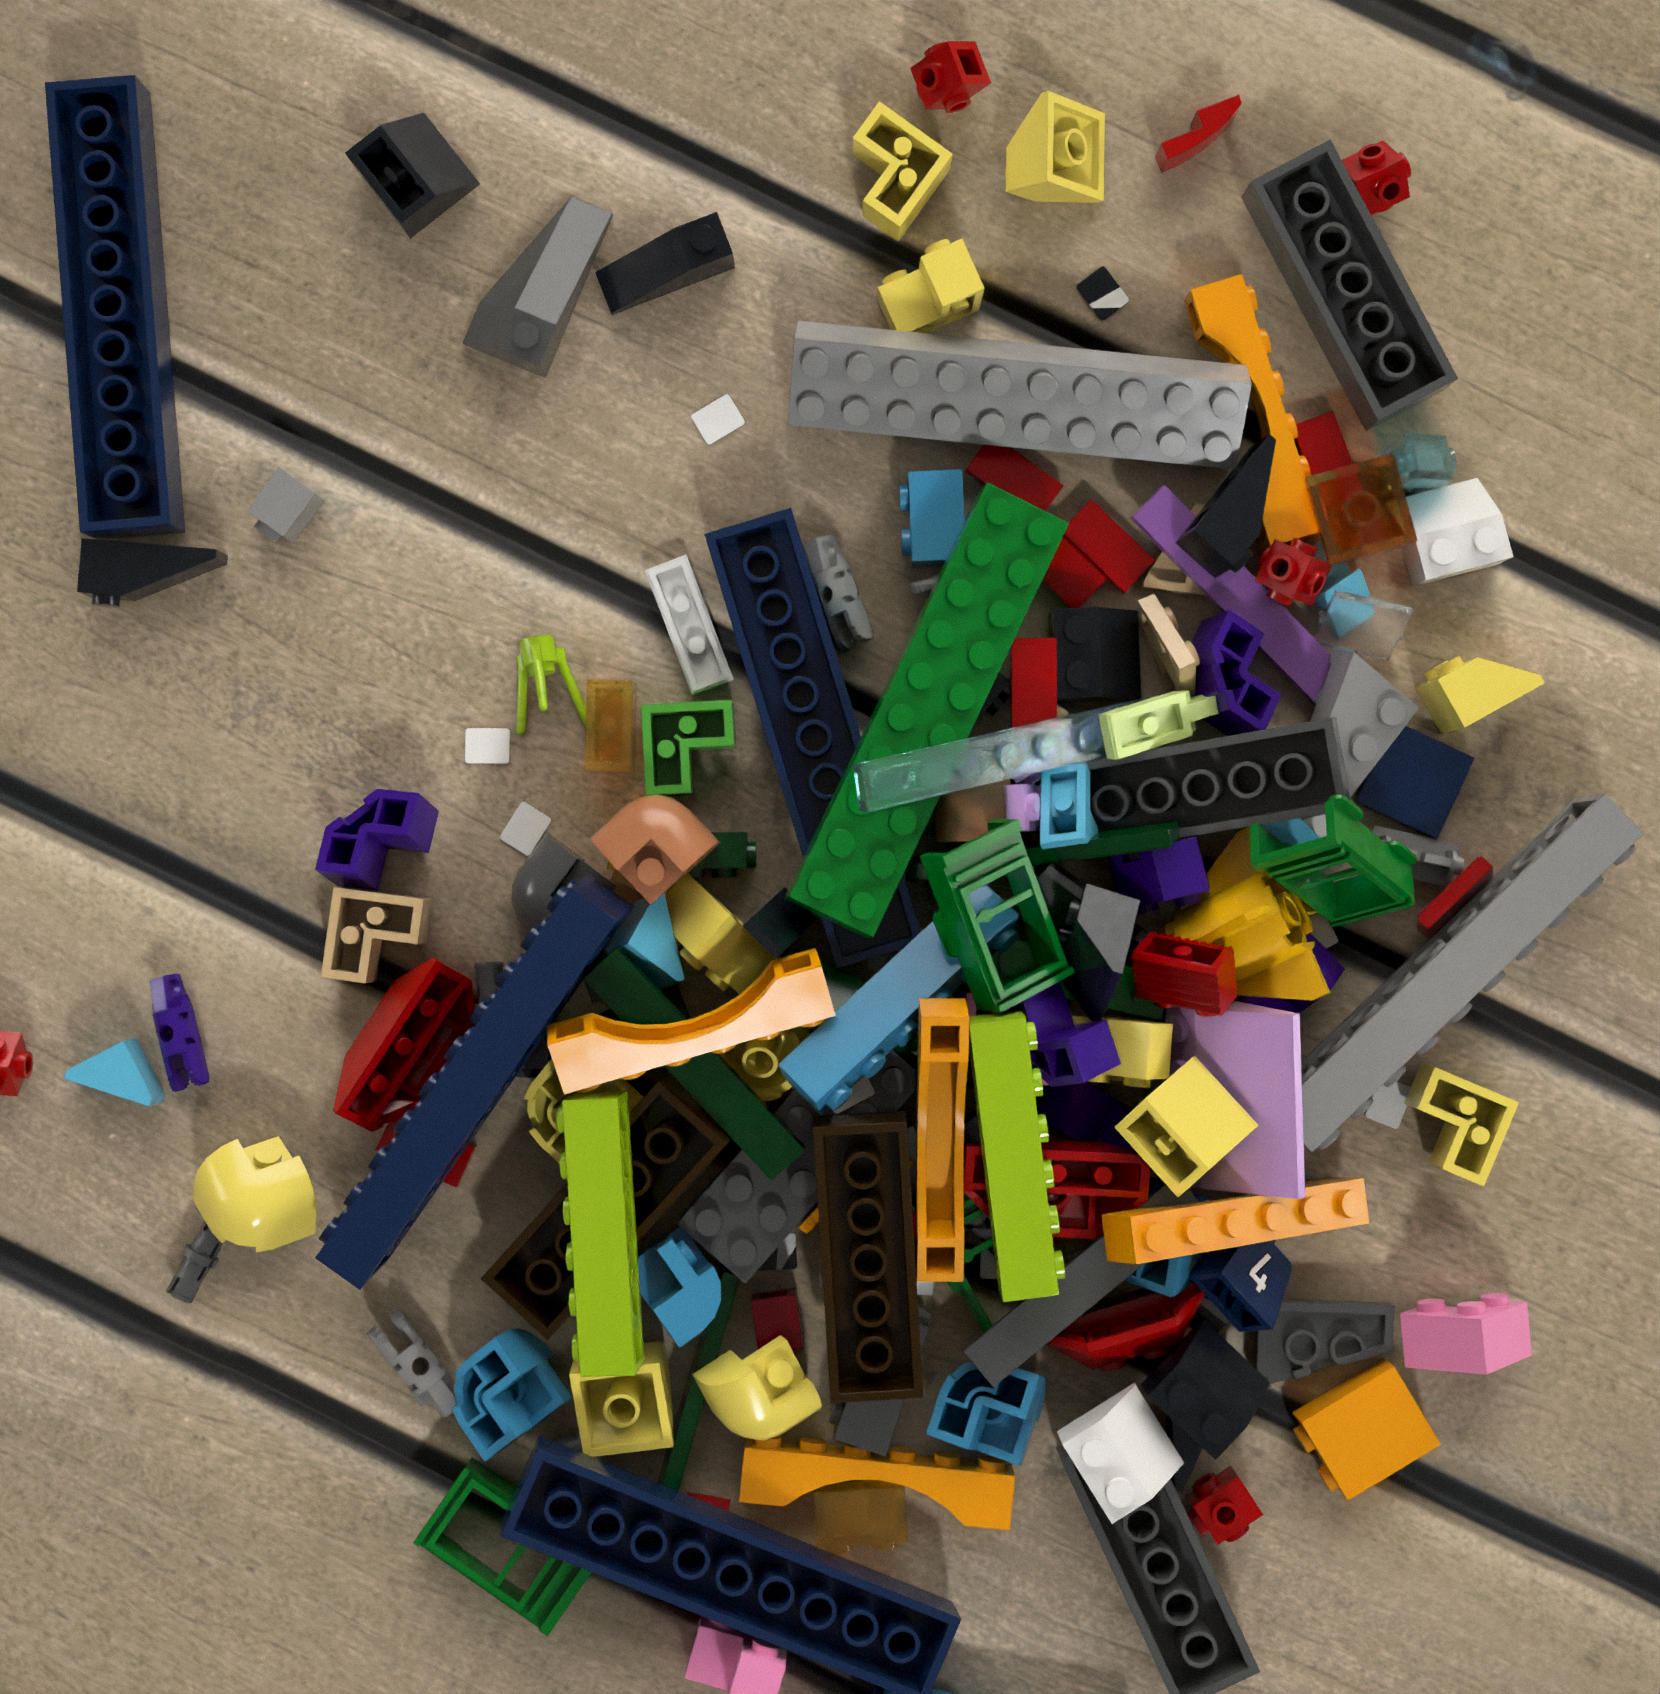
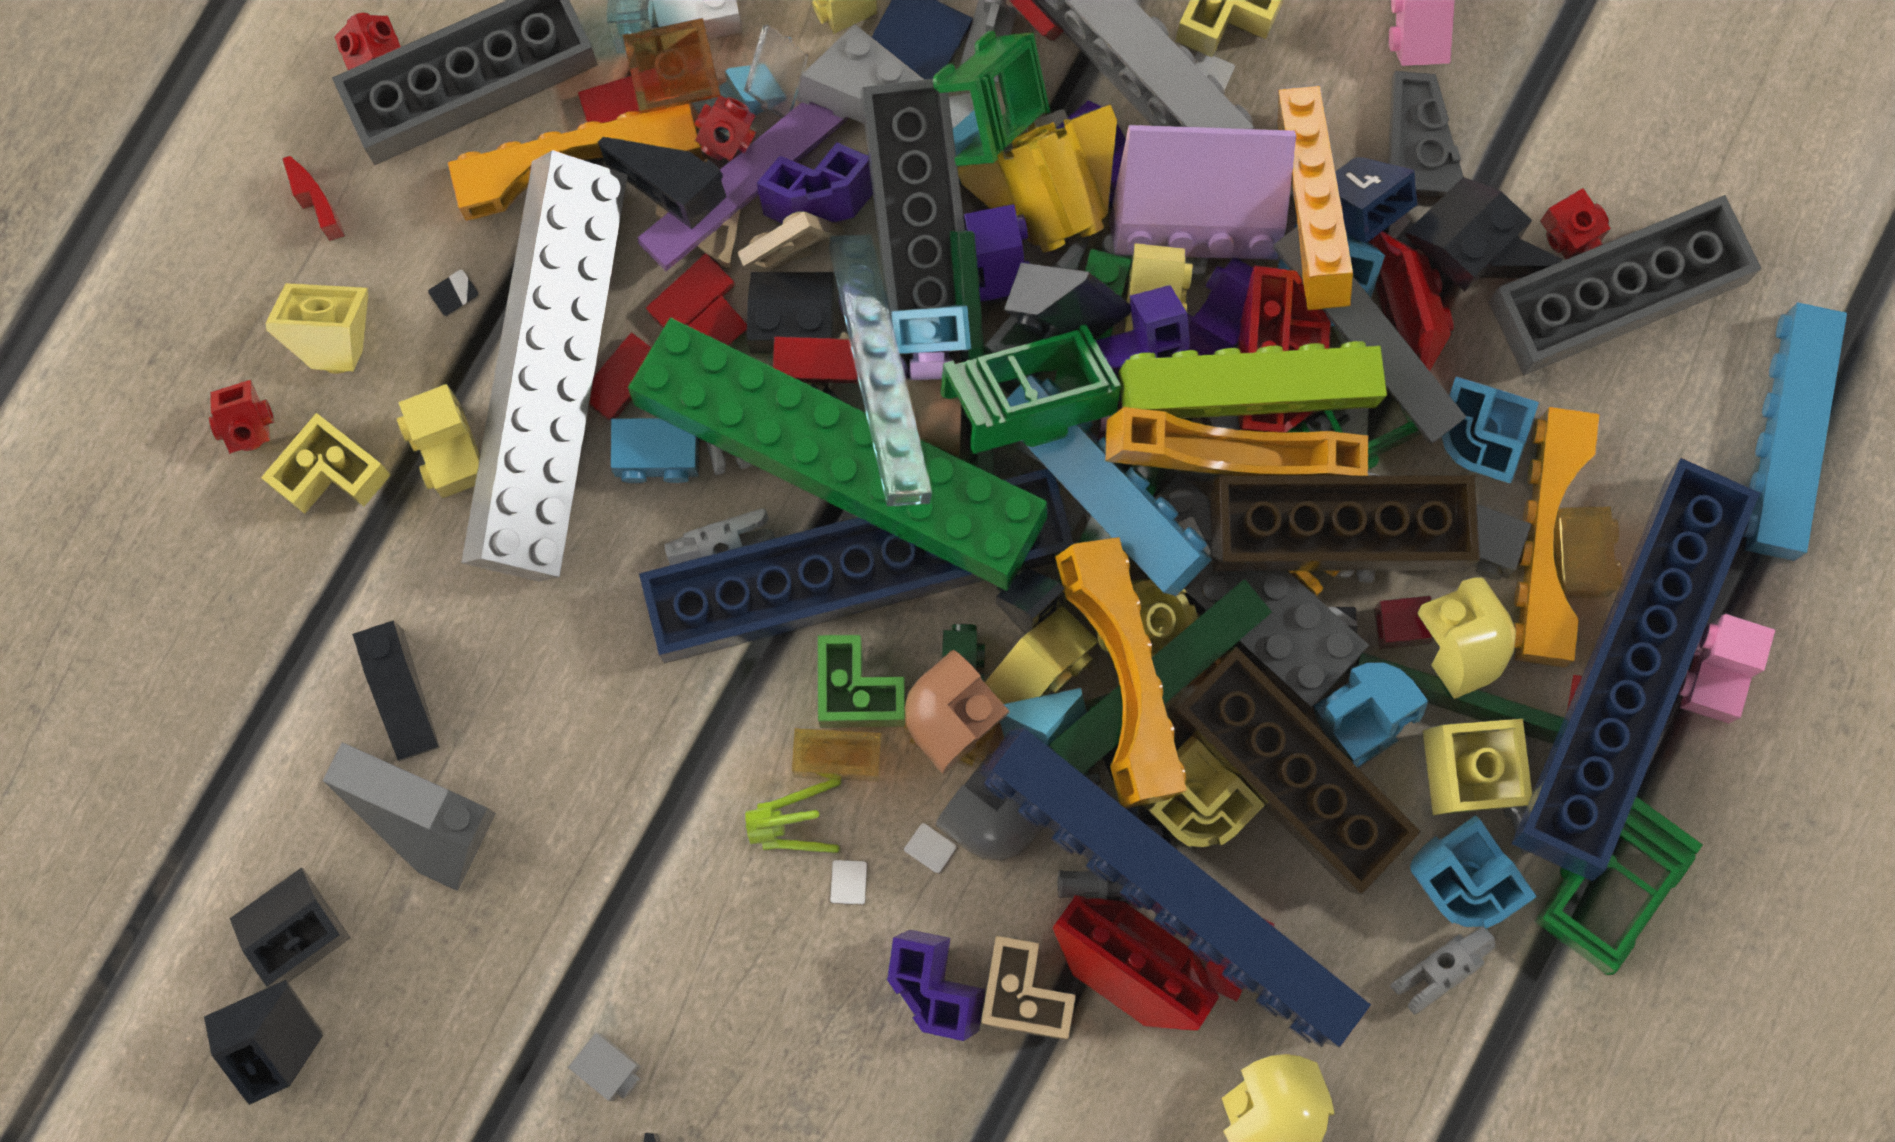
camera: 90 degrees left, 10 degrees down
(293, 153) = (263, 1040): none -> black slope
(602, 1233) = (1319, 766): lime brick -> none
(689, 625) = (742, 683): white tile -> none
(718, 419) = (547, 650): white sticker -> none
(1121, 1452) = (1526, 306): white slope -> none
(1153, 722) = (857, 252): yellowish green hinge -> none
(1184, 974) = (1090, 227): red brick -> none
(1186, 1126) = (1228, 231): light yellow slope -> none
(1364, 1429) = (1506, 101): light orange brick -> none

